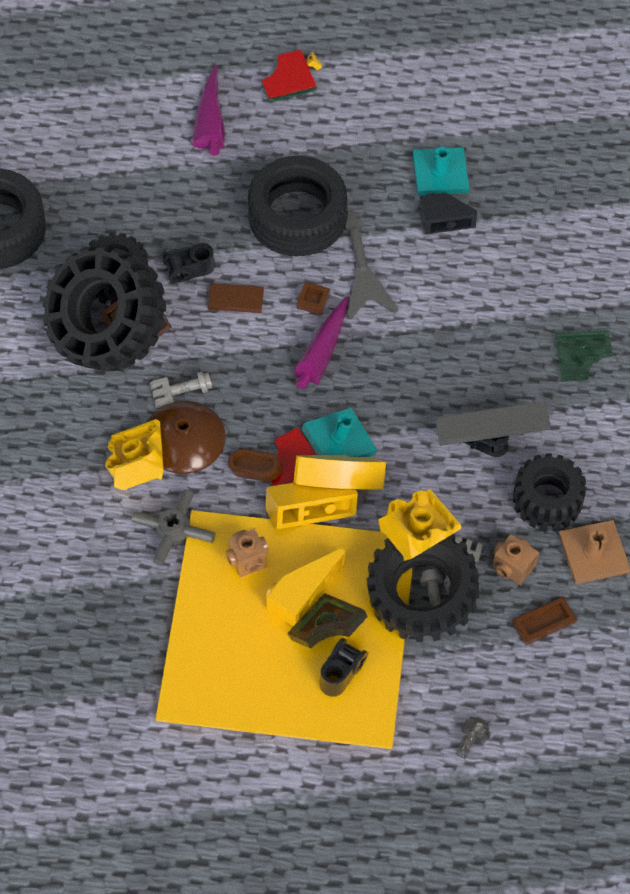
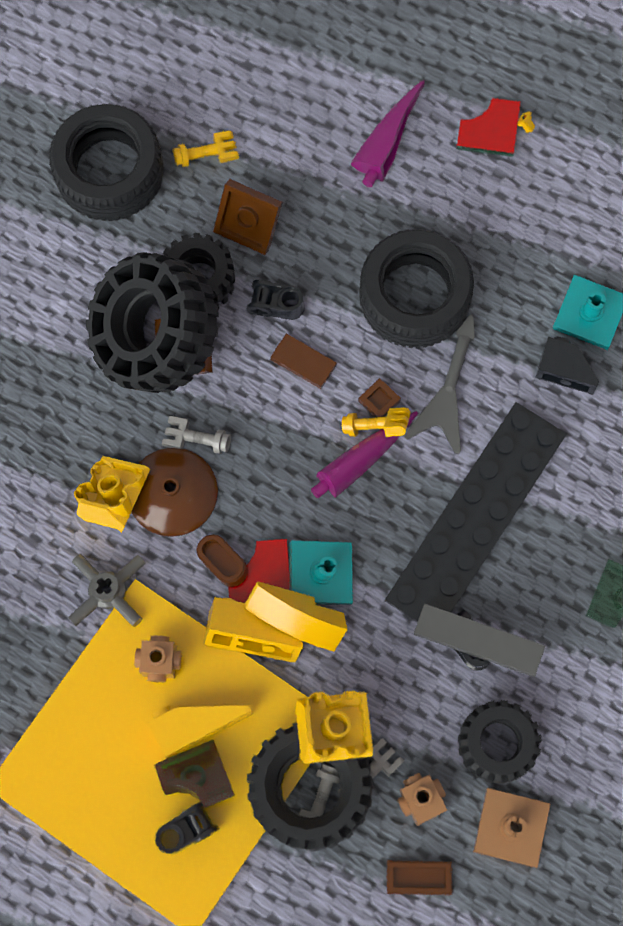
camera: 30 degrees right, 15 degrees up
(78, 173) = (219, 148): none -> yellow hinge
(133, 209) = (247, 216): none -> reddish brown tile
(336, 304) = (393, 425): none -> yellow hinge
(436, 346) = (477, 514): none -> black plate

